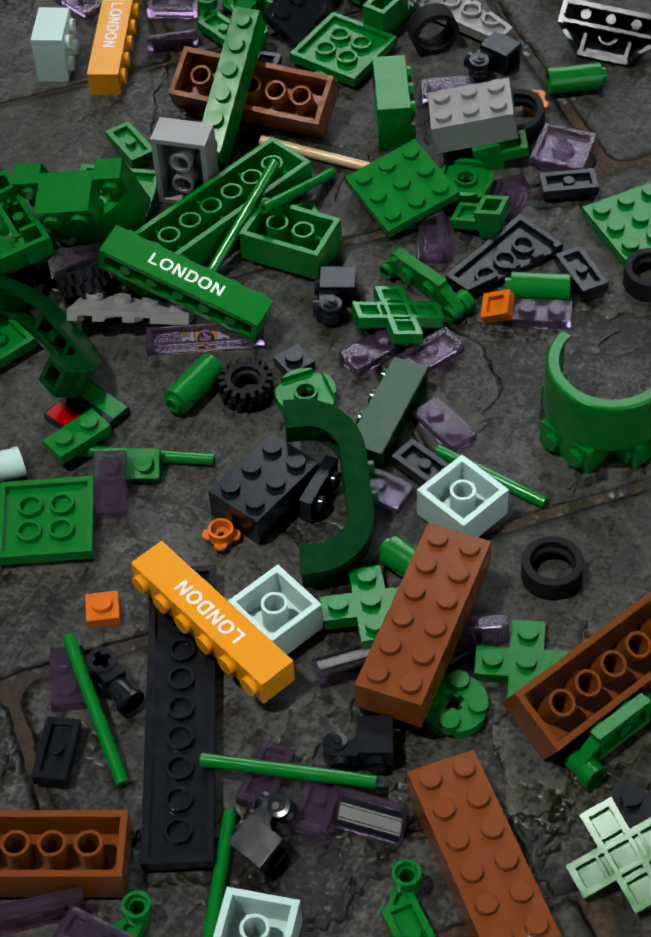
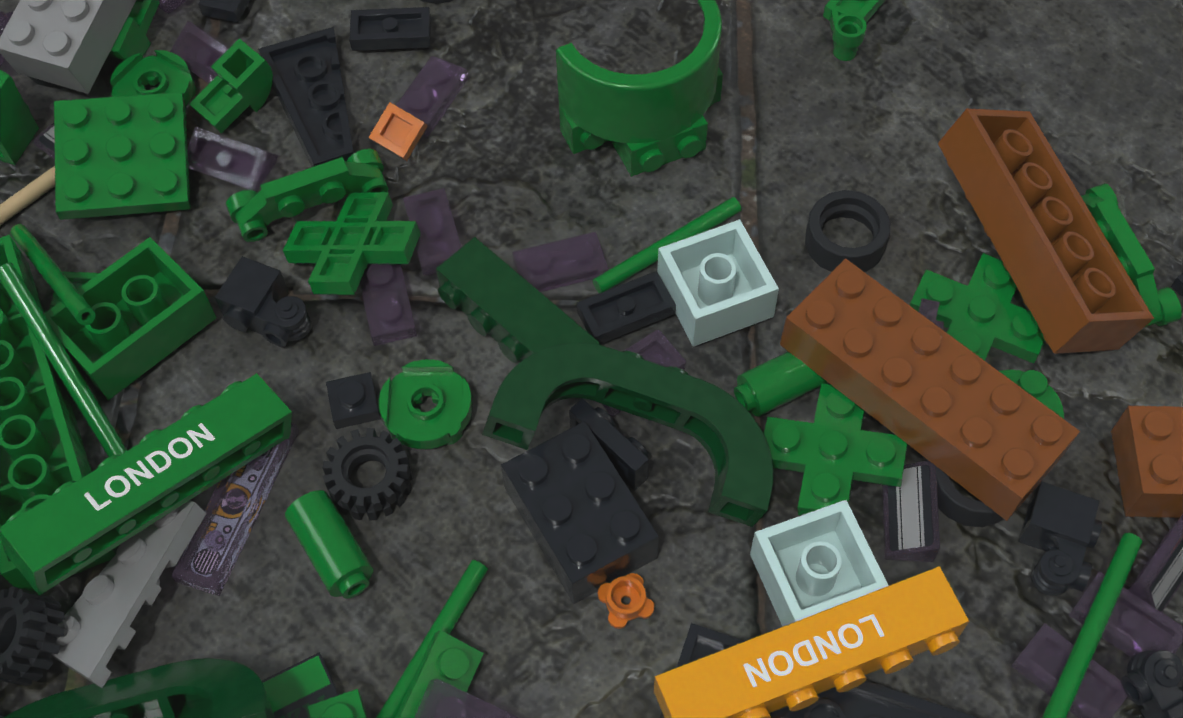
camera: 70 degrees left, 10 degrees up
(539, 285) = (391, 76): green brick -> none

